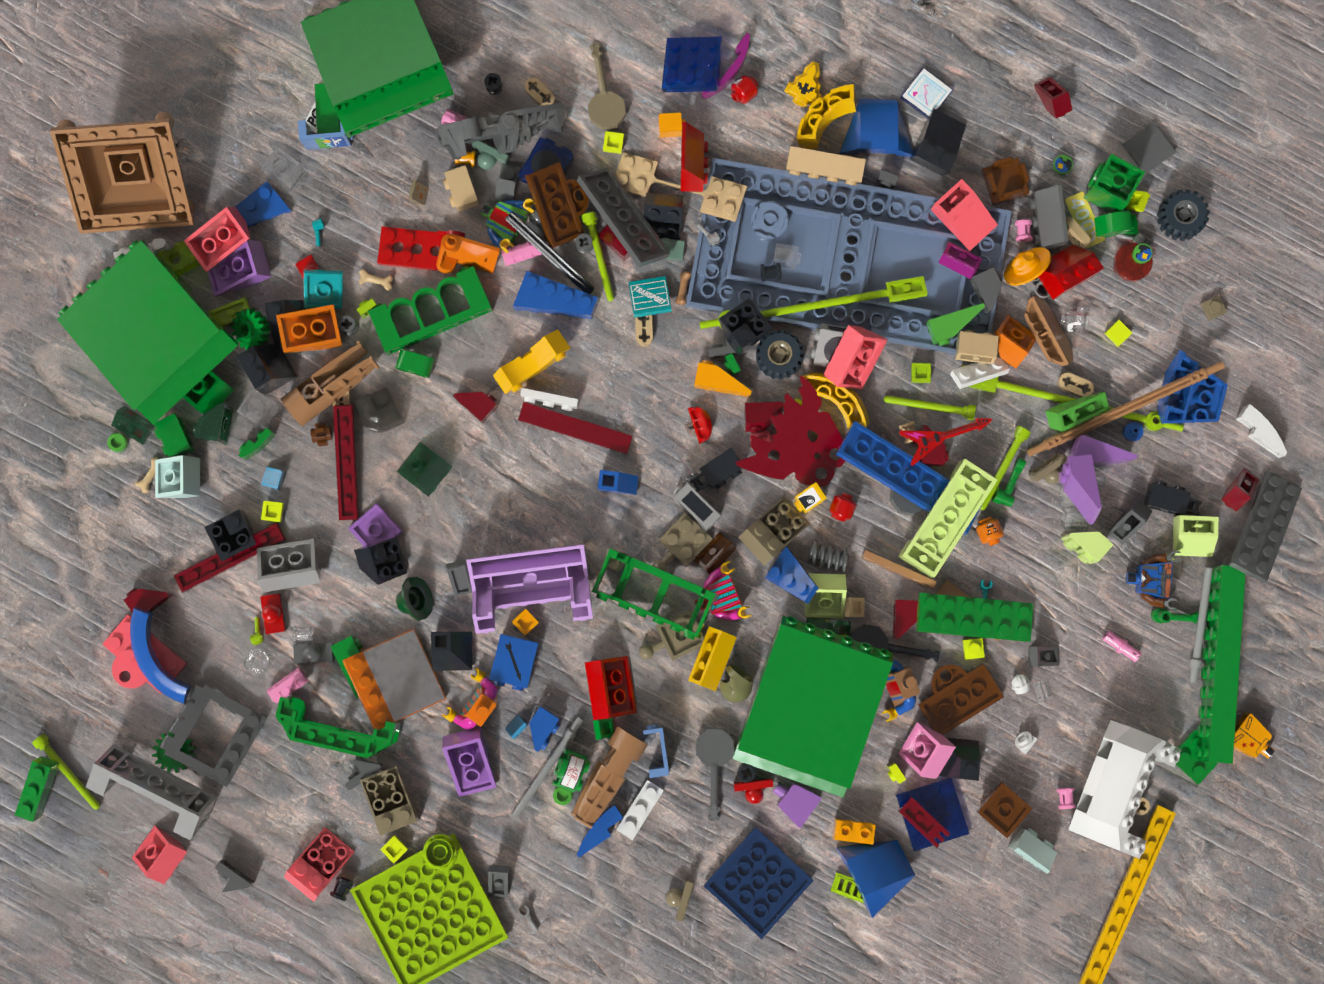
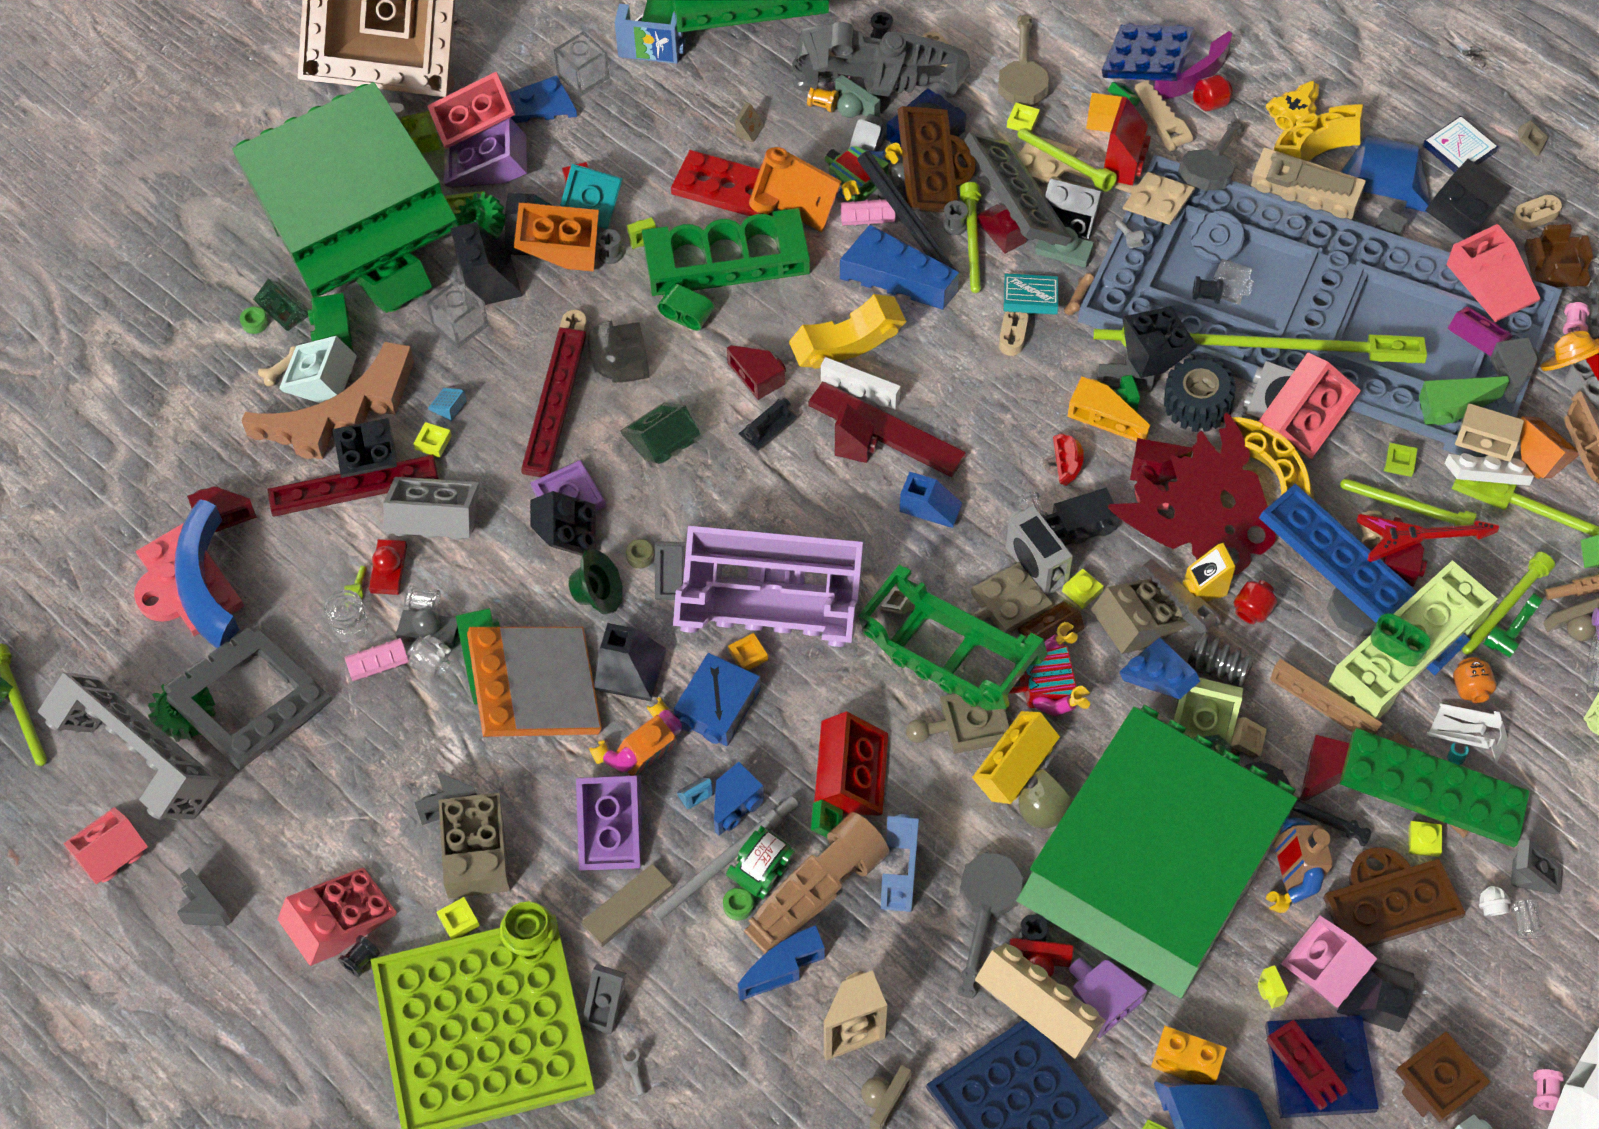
camera: 15 degrees right, 25 degrees down
(188, 523) = (312, 427): none -> nougat arch
(214, 425) = (391, 314): clear green slope -> none
(250, 448) = (434, 359): green slope -> none
(291, 716) = (429, 733): green windscreen -> none
(318, 225) = (605, 134): teal hand -> none
(321, 434) = (531, 360): reddish brown gear -> none
(321, 676) = (429, 656): none -> clear head
(327, 385) = (561, 303): medium nougat piece -> none
(366, 277) = (674, 212): tan piece -> none
(435, 563) = (640, 553): none -> olive tile
(461, 189) = (807, 128): tan brick -> none
(495, 444) = (768, 424): none -> black hinge
(495, 813) = (627, 905): none -> dark tan tile
(556, 444) = (854, 435): none -> dark red slope
(640, 809) = (852, 952): white plate -> none
(653, 861) = (855, 1015): none -> tan slope
(681, 104) = (1121, 89): none -> green plate
(681, 194) = (1102, 178): none -> lime piece
(712, 117) = (1163, 117): none -> tan piece
(730, 520) = (1082, 588): none -> neon yellow plate
(753, 166) = (1210, 168): none -> dark grey piece
(759, 820) = (1040, 1000): none -> tan brick
(795, 517) = (1187, 602): none -> flat silver piece
(825, 165) = (1307, 176): none -> dark tan piece
(940, 529) = (1398, 643): none -> green beam
(975, 74) = (1532, 137): none -> dark tan slope
(977, 564) = (1457, 729): none -> white piece
(984, 138) = (1538, 215): none -> tan beam
(1025, 741) = (1490, 991): white plate -> none

